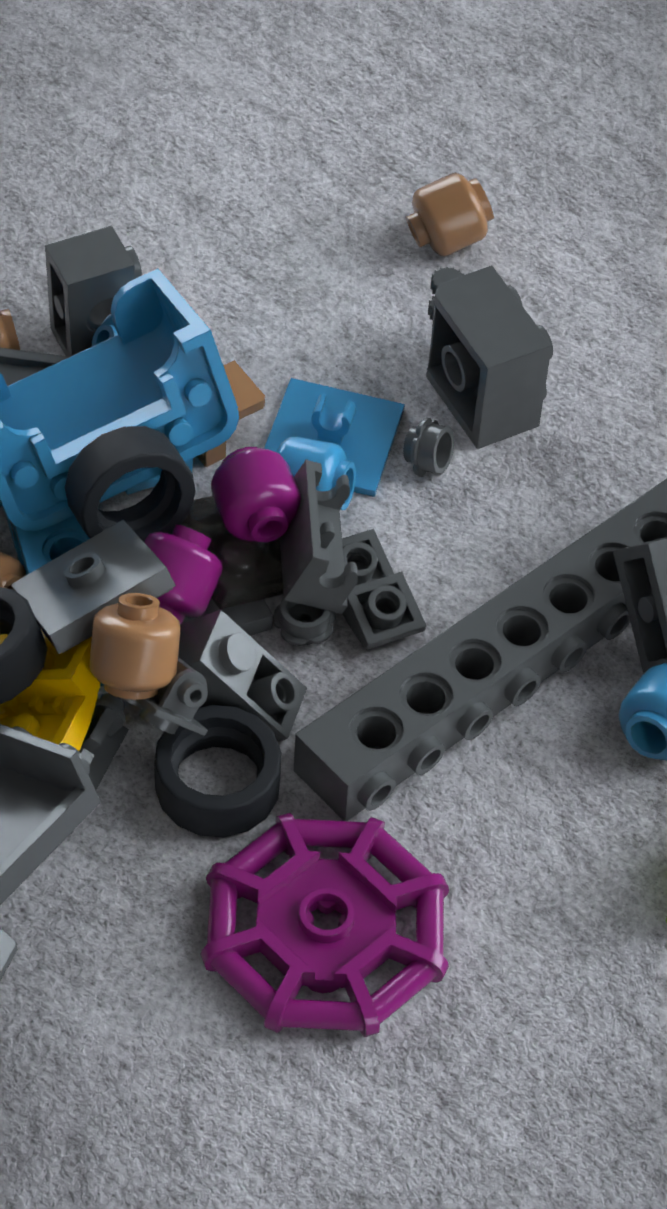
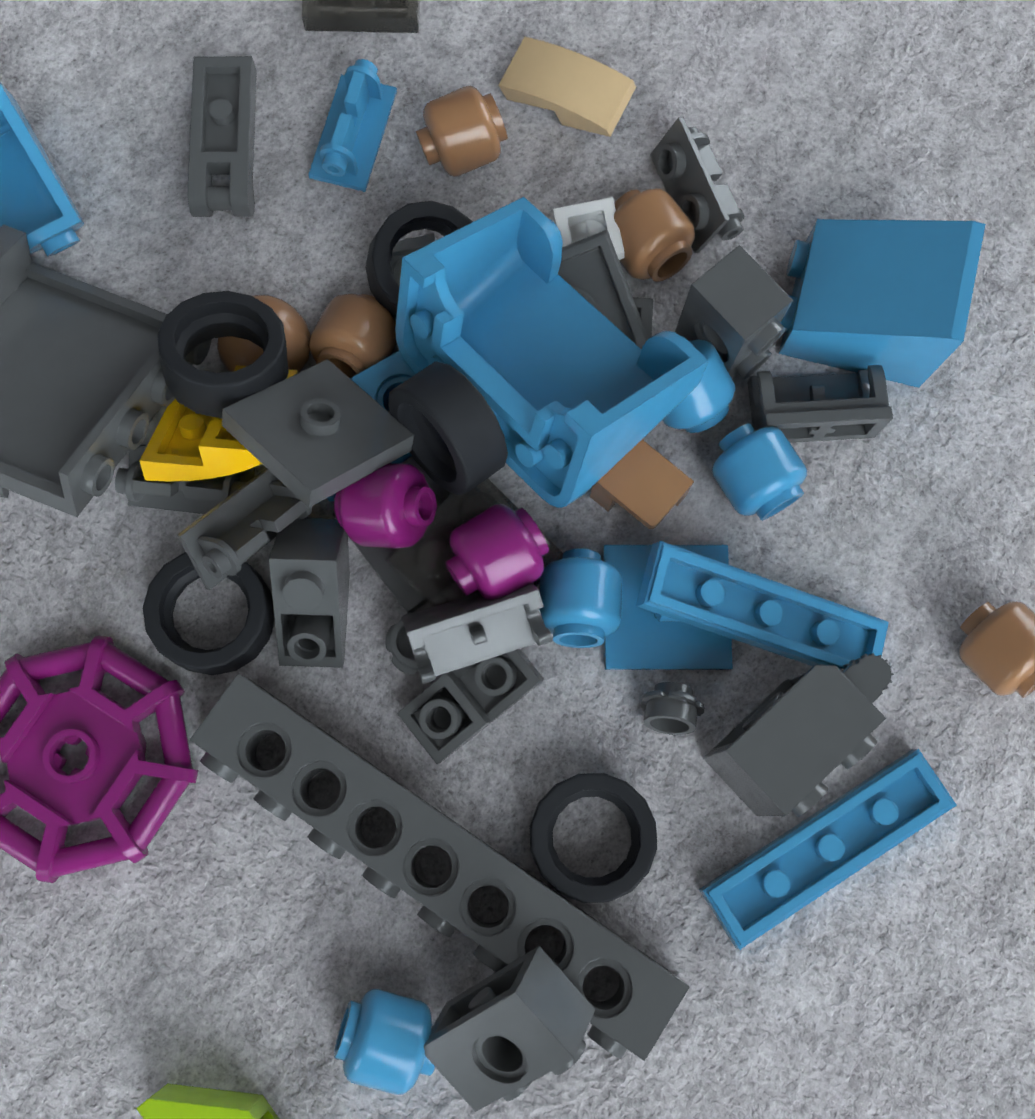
camera: 75 degrees right, 25 degrees up
(118, 173) = (882, 294): none -> dark azure slope
(134, 647) = (234, 491): medium nougat head -> none
(197, 264) = (821, 405): none -> dark grey hinge
(242, 323) = (759, 471): none -> dark azure head
(362, 357) = (756, 609): none -> dark azure tile
(521, 491) = (639, 856): none -> black tyre
(586, 390) = (827, 848): none -> dark azure tile

